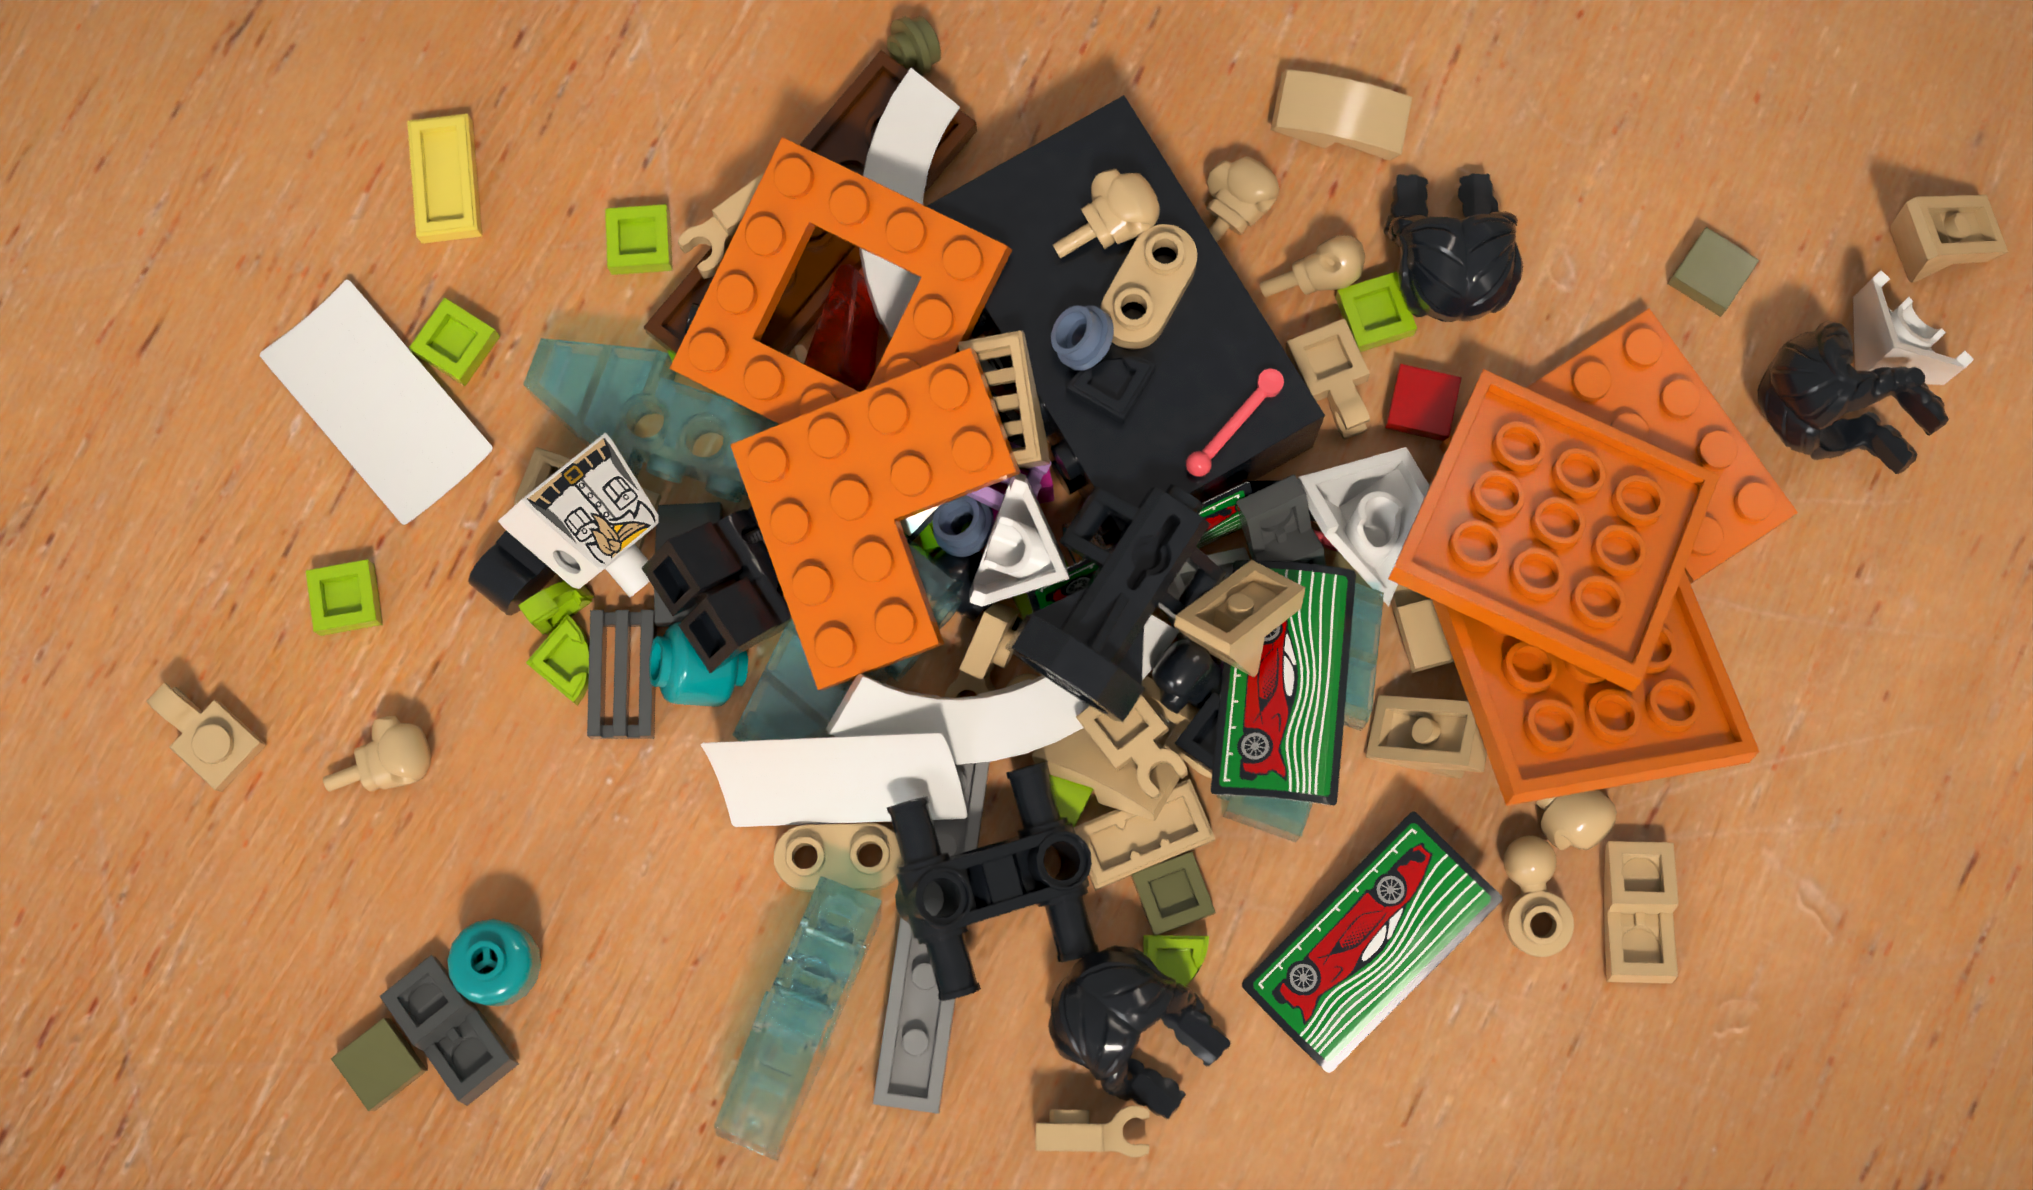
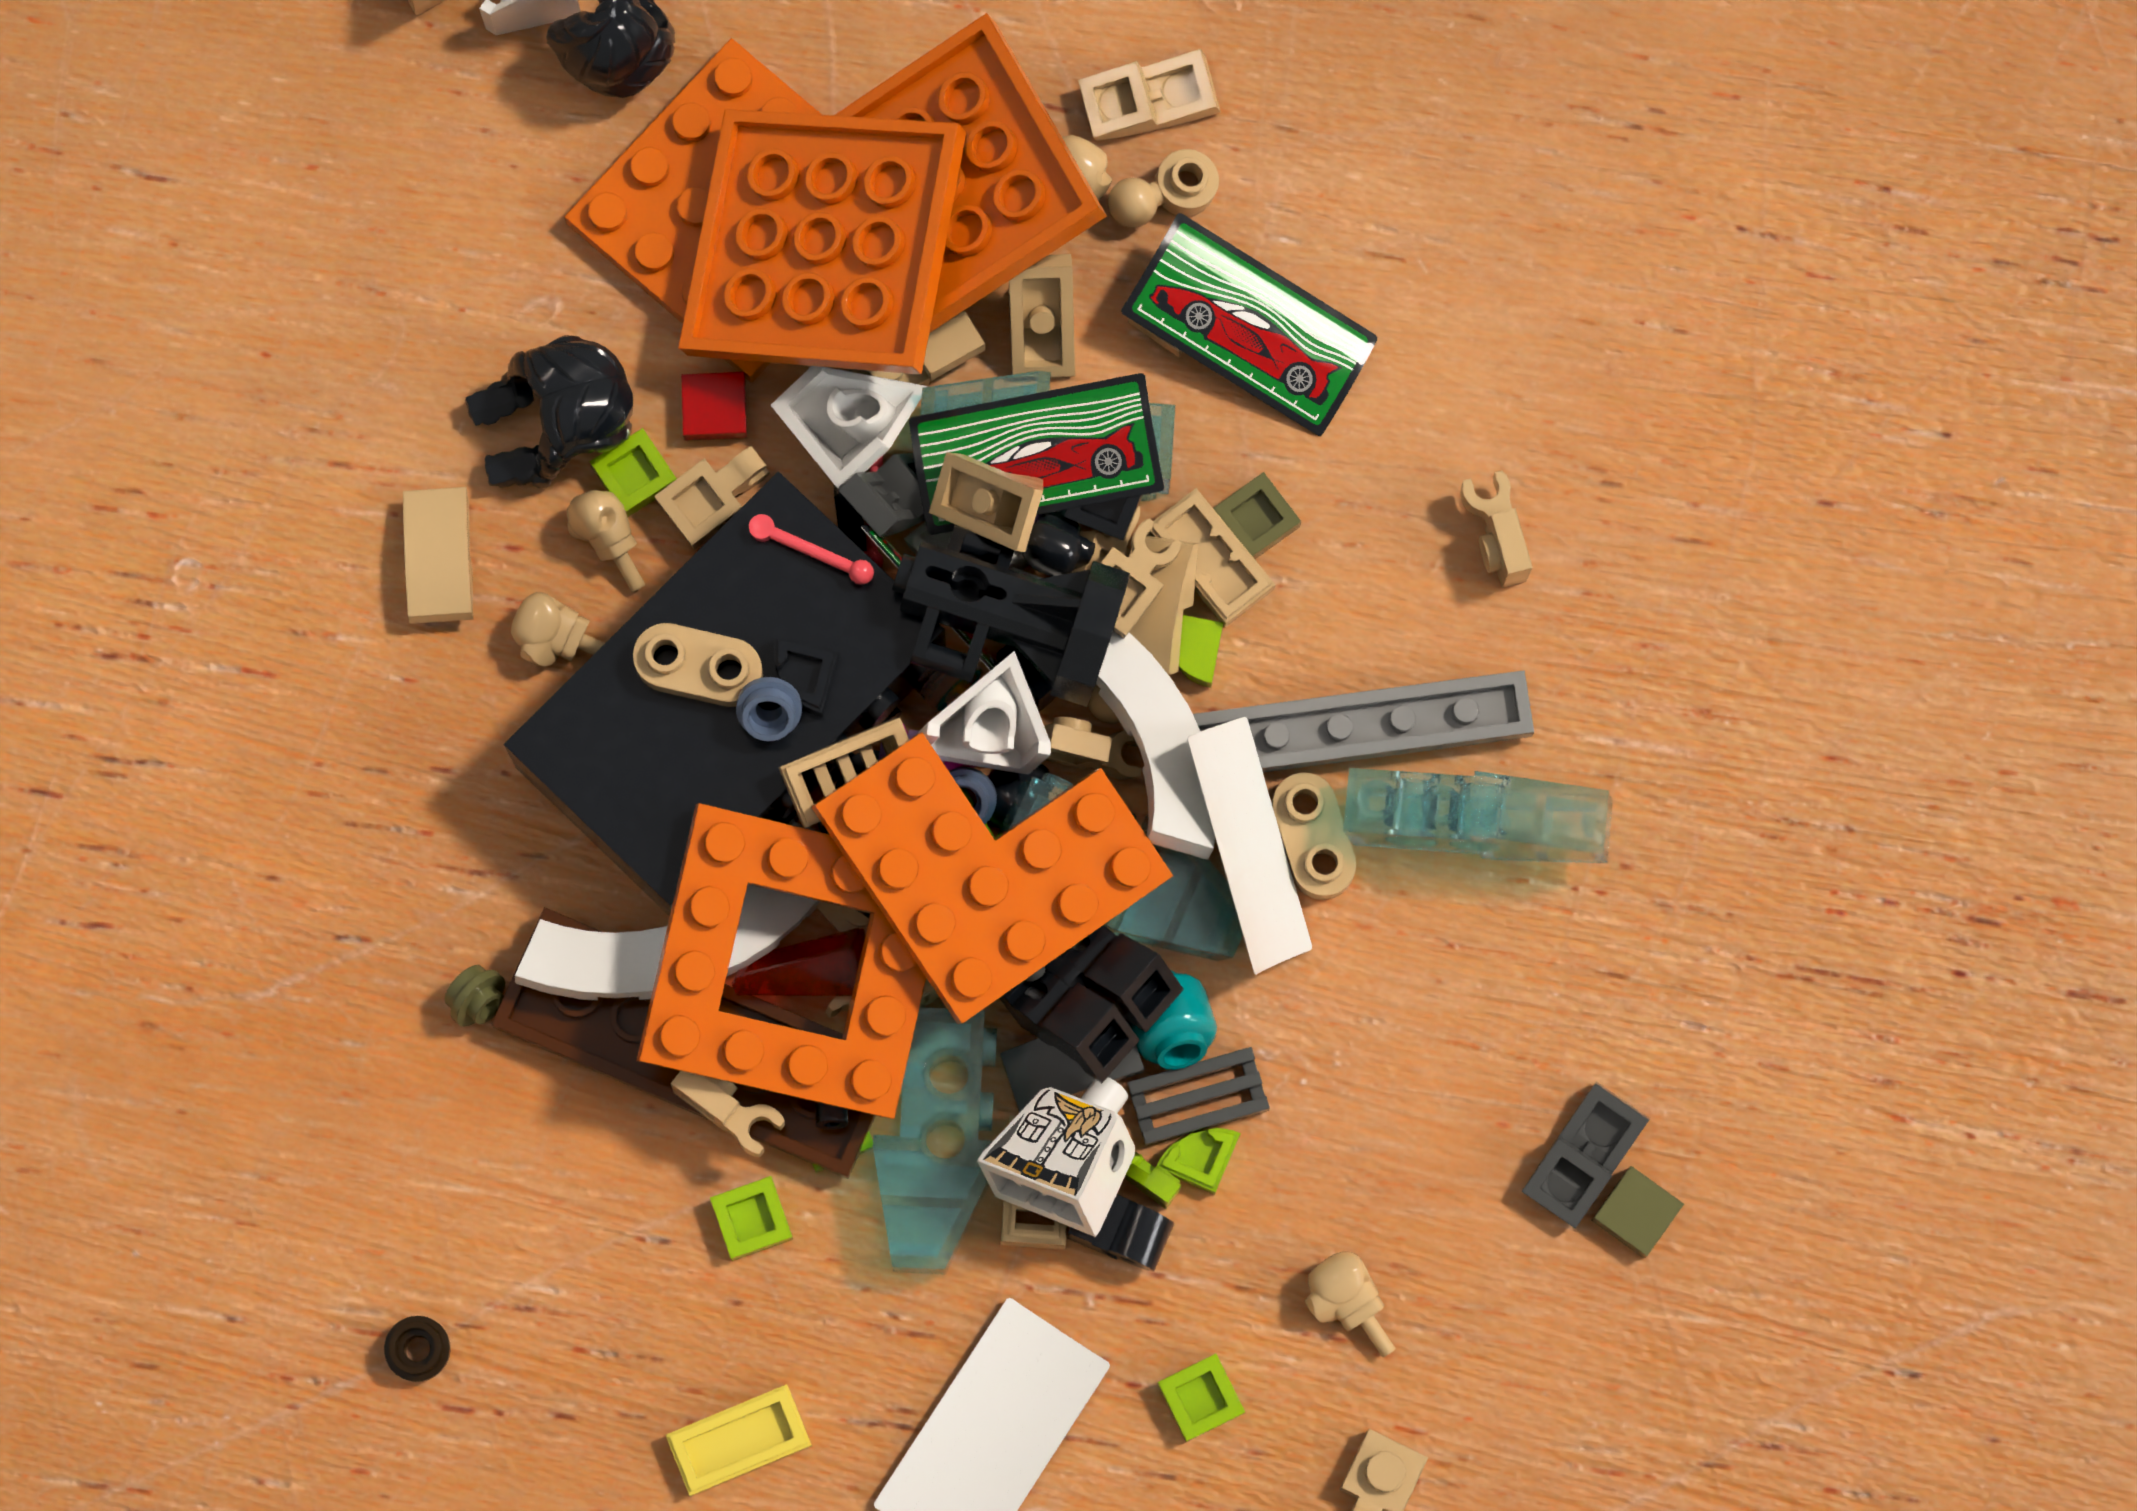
camera: 115 degrees left, 0 degrees up
(454, 341) = (909, 1372): lime tile -> none
(513, 972) = (1491, 1130): teal head -> none
(992, 880) = (1298, 674): black piece -> none
(1107, 1006) = (1386, 536): black hair -> none
(1119, 211) = (632, 709): tan piece -> none
(1177, 955) = (1321, 503): lime tile -> none
(1713, 272) = (508, 167): olive tile -> none

